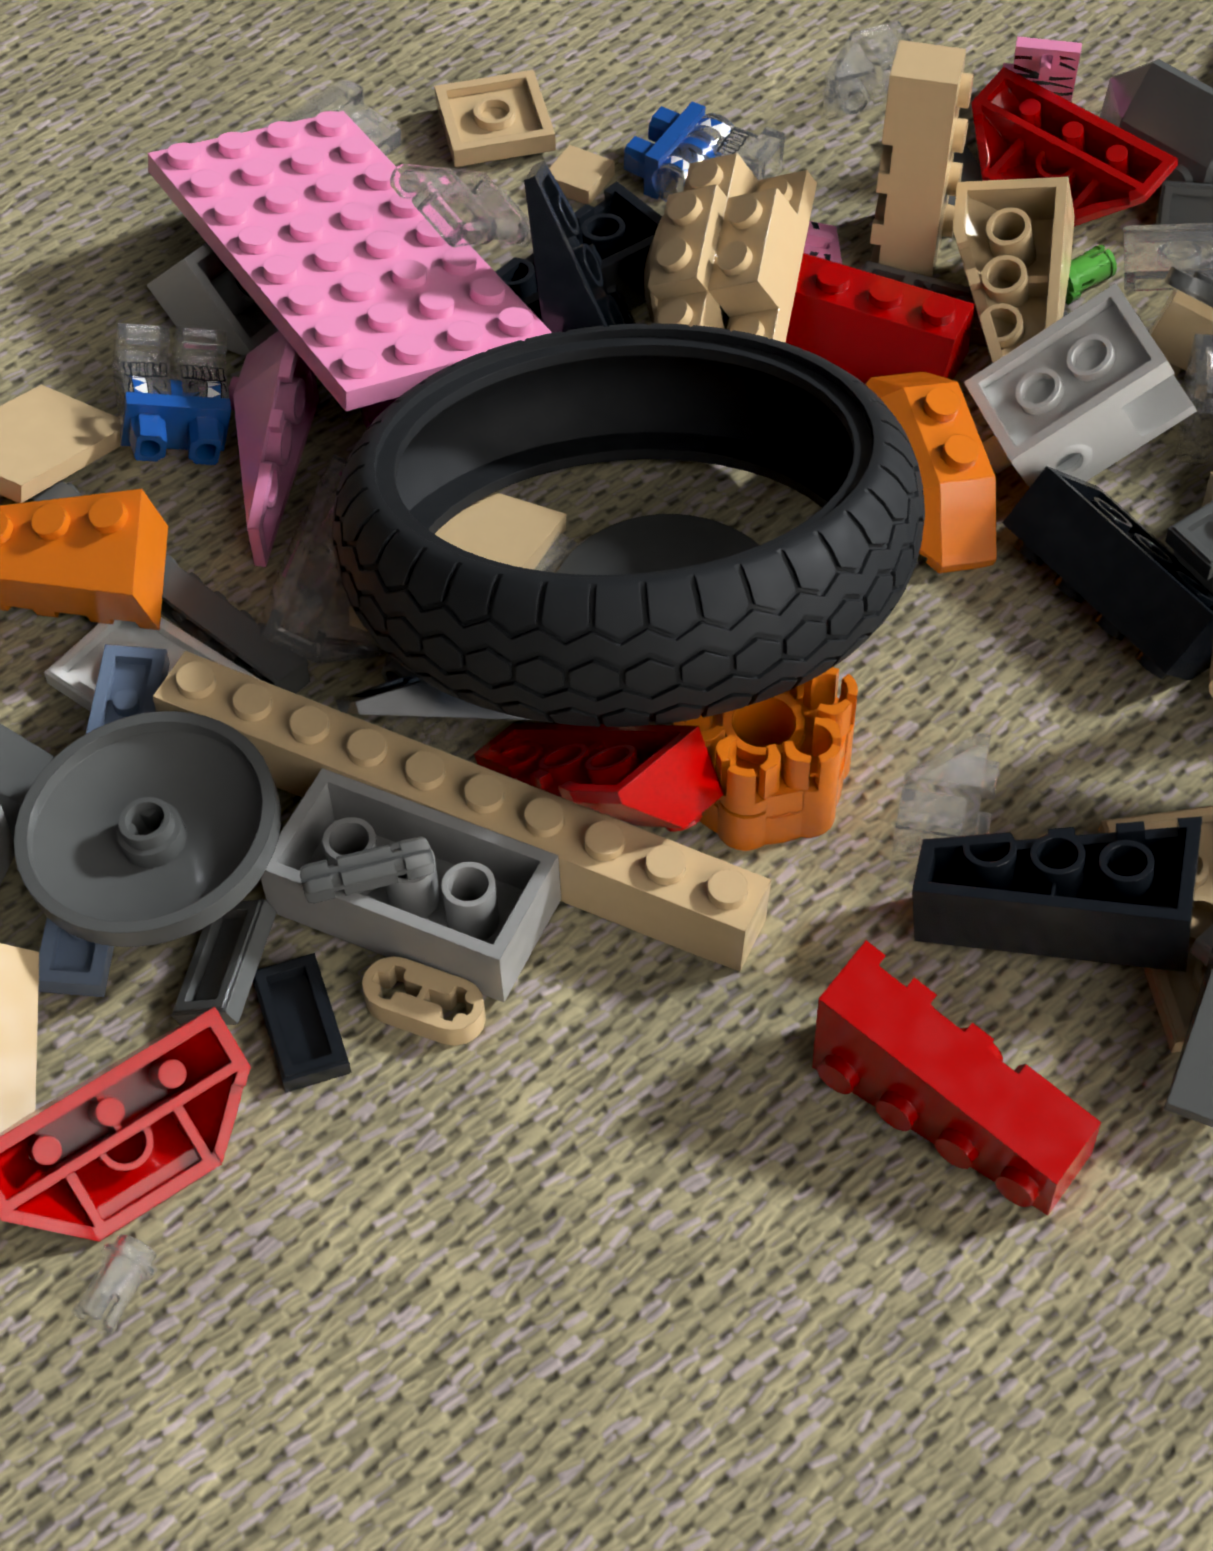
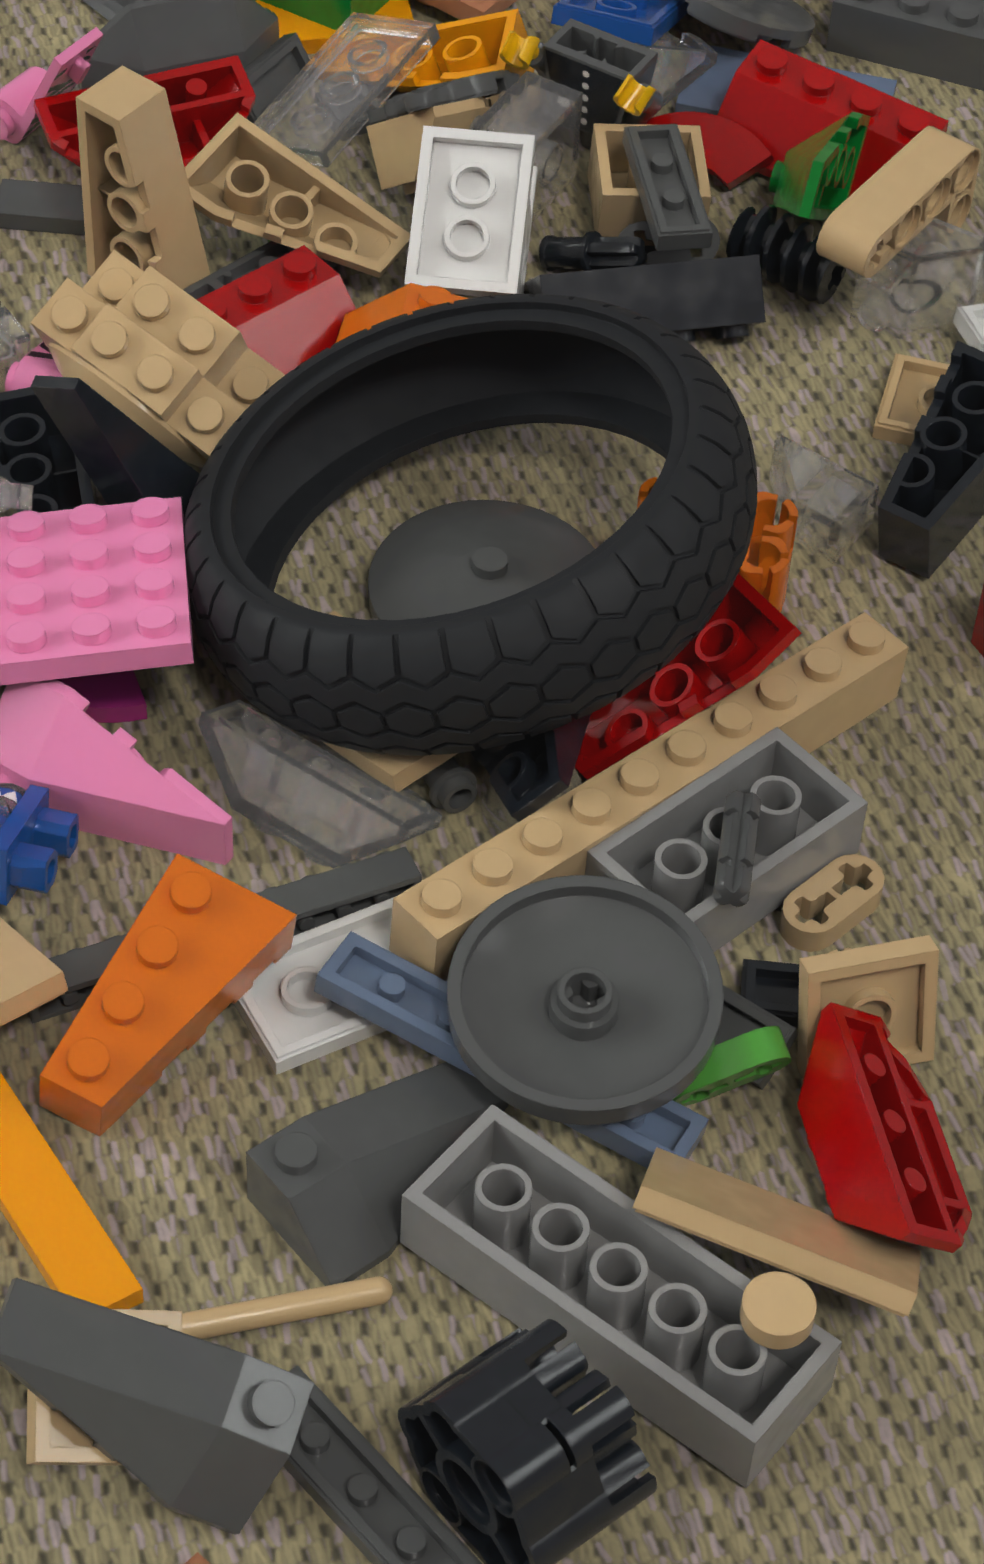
camera: 70 degrees left, 5 degrees down
(159, 977) = (738, 1063): none -> bright green beam
(276, 1047) = (881, 979): none -> tan tile
(1157, 505) = (591, 252): none -> black axle

